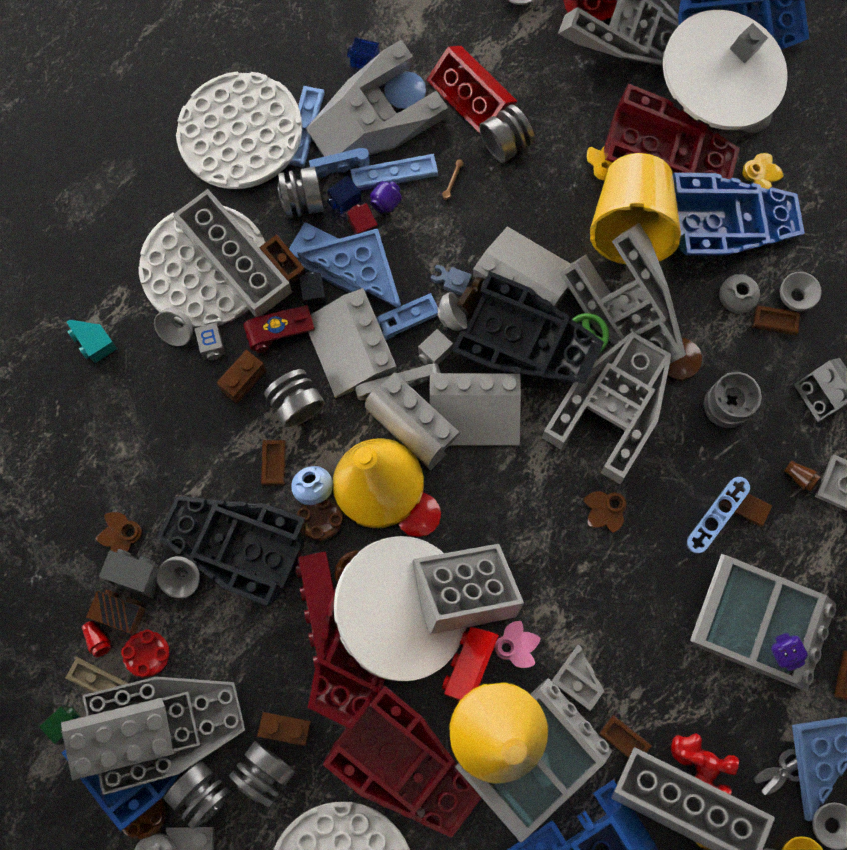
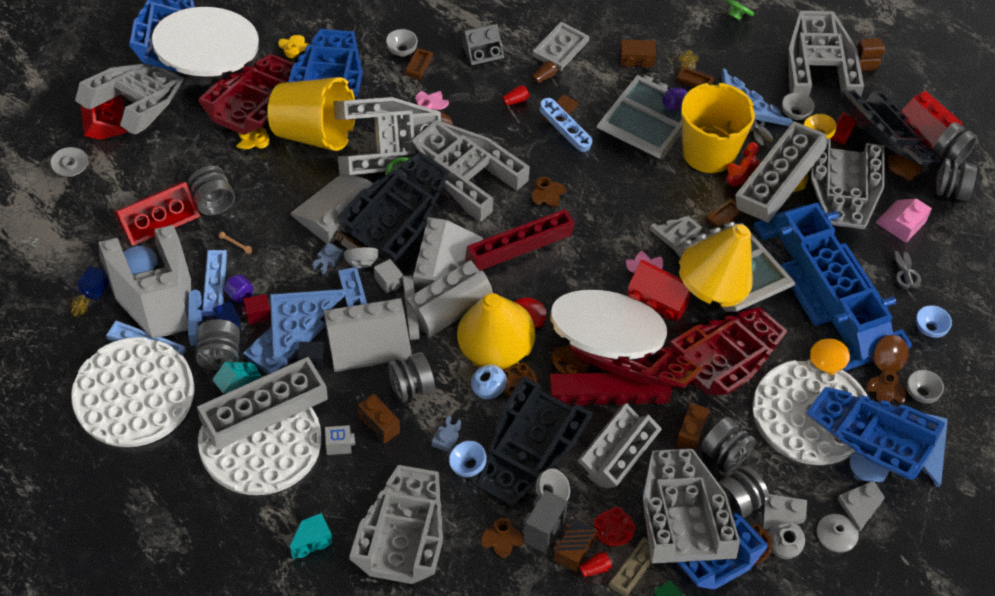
camera: 85 degrees left, 20 degrees down
(110, 426) = (402, 529): none -> light grey wedge
(117, 738) = (694, 523): light grey brick -> none
(170, 330) = (323, 466): light grey piece -> none
(199, 472) = (464, 452): none -> light blue piece
(236, 452) = (447, 437): none -> sand blue plate
(243, 645) = (618, 446): none -> light grey brick
(271, 221) = (235, 375): none -> teal slope
(273, 462) = (461, 410): reddish brown tile -> none
(278, 325) = (339, 386): dark red door -> none
(283, 259) = (278, 361): reddish brown brick -> none
(336, 50) = (79, 305): none -> clear yellow plant
(466, 588) = (598, 282): light grey slope -> none
(512, 486) = (520, 240): none -> dark red brick
(717, 346) = (431, 101): none -> bright pink plate
(733, 300) = (393, 84): light grey piece -> none
(740, 391) = (479, 95): flat silver wheel -> none
(748, 42) = (192, 17): dark grey brick -> none
(752, 446) = (517, 95): none -> red cone
(759, 704) = (715, 126): none -> yellow cone

